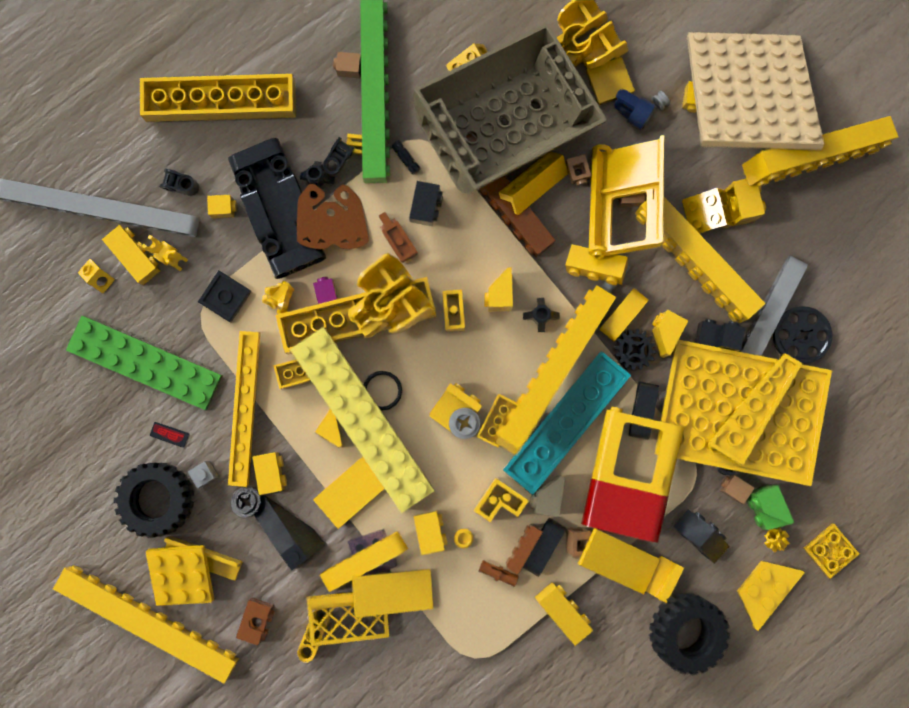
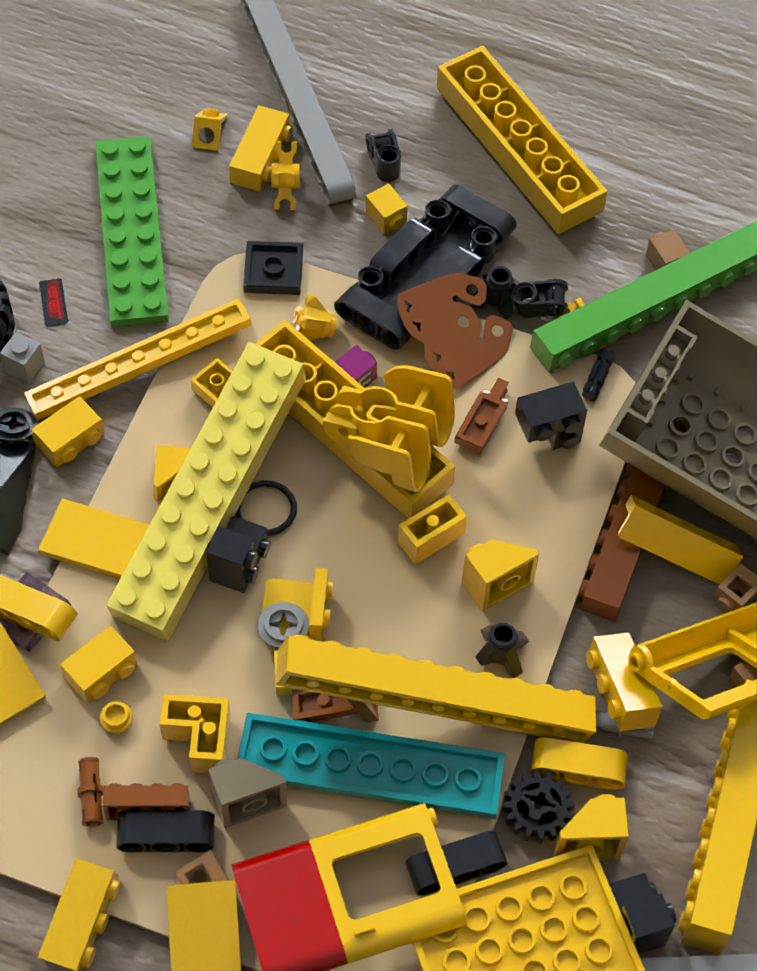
camera: 55 degrees right, 25 degrees down
(405, 422) = (236, 554): none -> black brick

